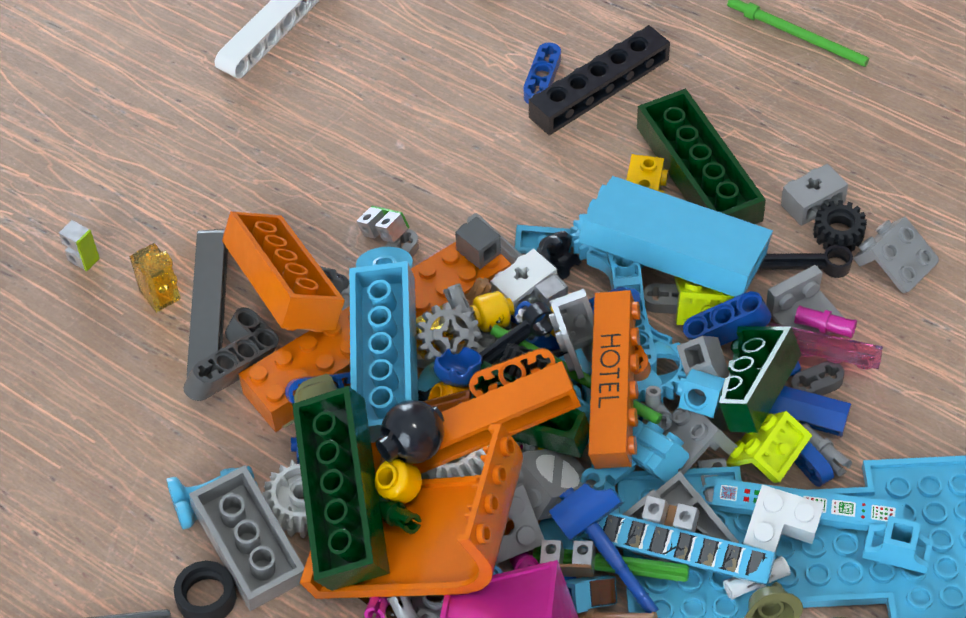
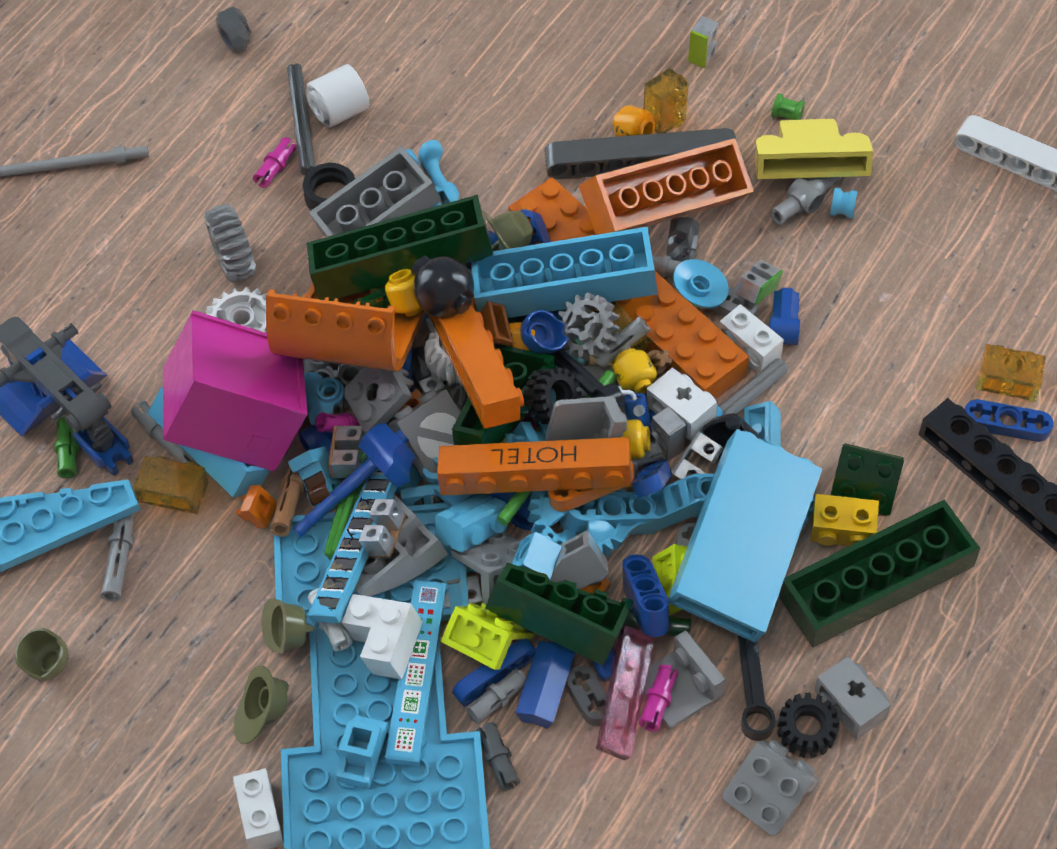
camera: 85 degrees right, 5 degrees up
(79, 577) = (337, 96): none -> white piece
(170, 312) = (633, 121): none -> light orange head
(174, 190) = (787, 108): none -> bright green bush
(240, 169) = (812, 151): none -> light yellow brick
(250, 342) = (567, 163): dark grey beam -> none
(283, 185) = (803, 196): none -> light grey pin
(297, 158) = (843, 203): none -> medium azure wheel
(431, 212) = (785, 315): none -> blue piece
(442, 230) = (752, 337): none -> white brick
(478, 242) = (714, 348): dark grey brick -> none
(487, 372) = (516, 345): orange beam -> none
(496, 63) = (1020, 383): none -> clear yellow brick
(570, 271) = (699, 445): none -> flat silver piece
(601, 162) = (868, 476): none -> dark green bracket
(653, 400) = (520, 522): light grey arm -> none
(883, 450) = (498, 756): none -> dark grey pin

